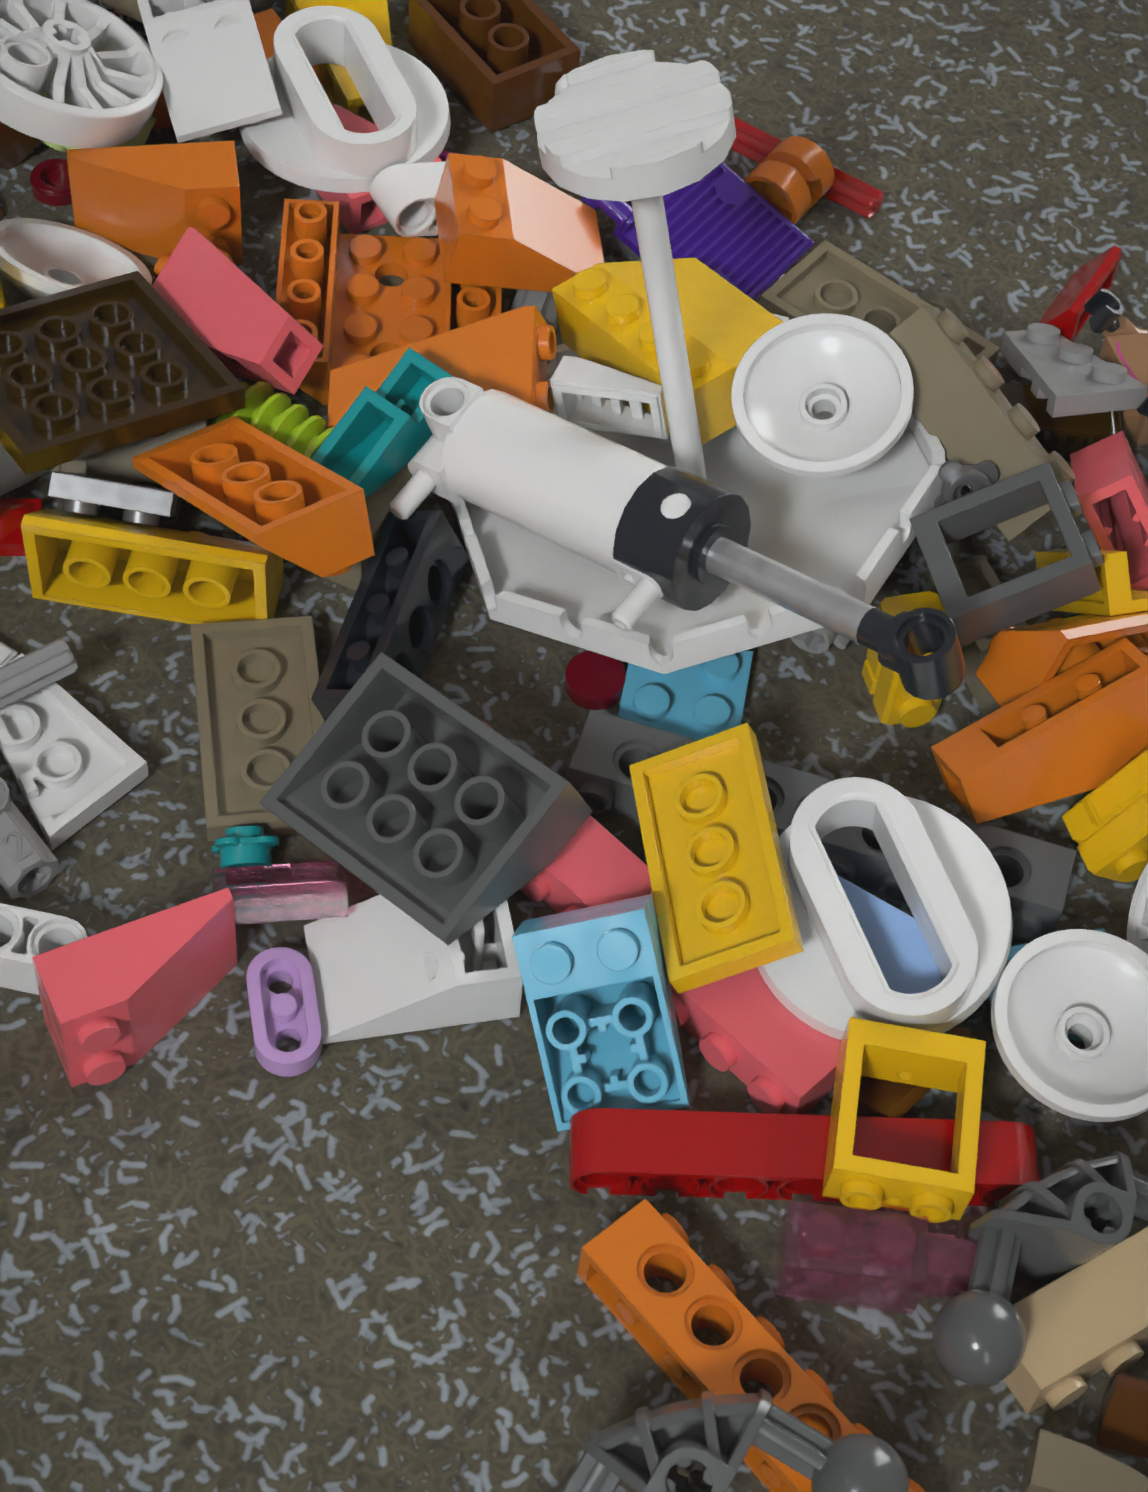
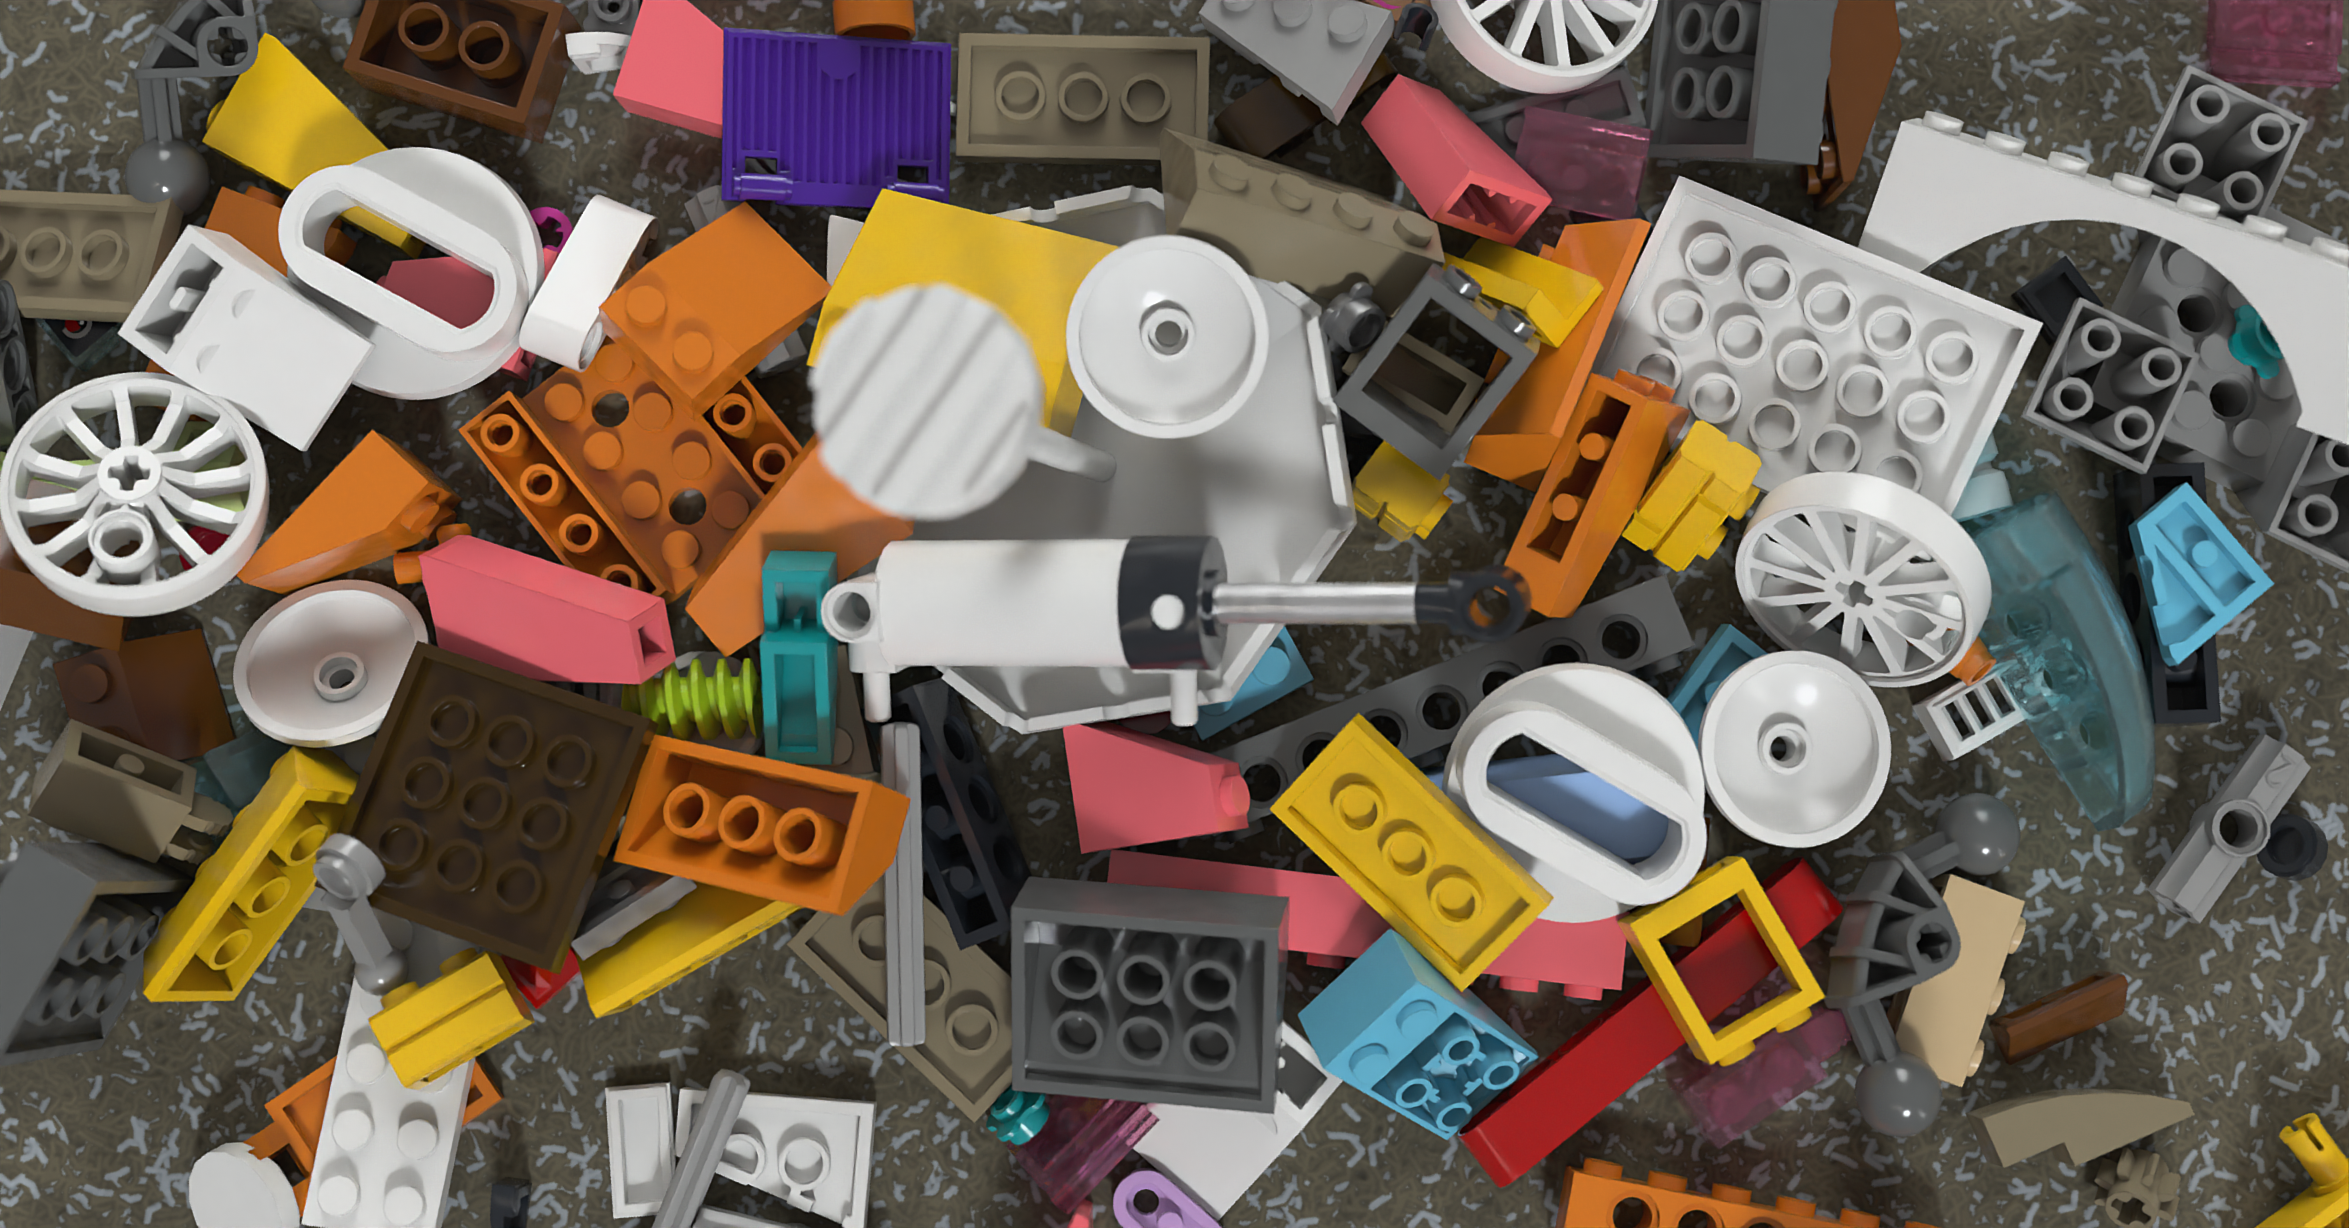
camera: 30 degrees left, 30 degrees up
(308, 630) = (904, 892): none -> light grey axle
(549, 698) = (1148, 789): none -> coral slope

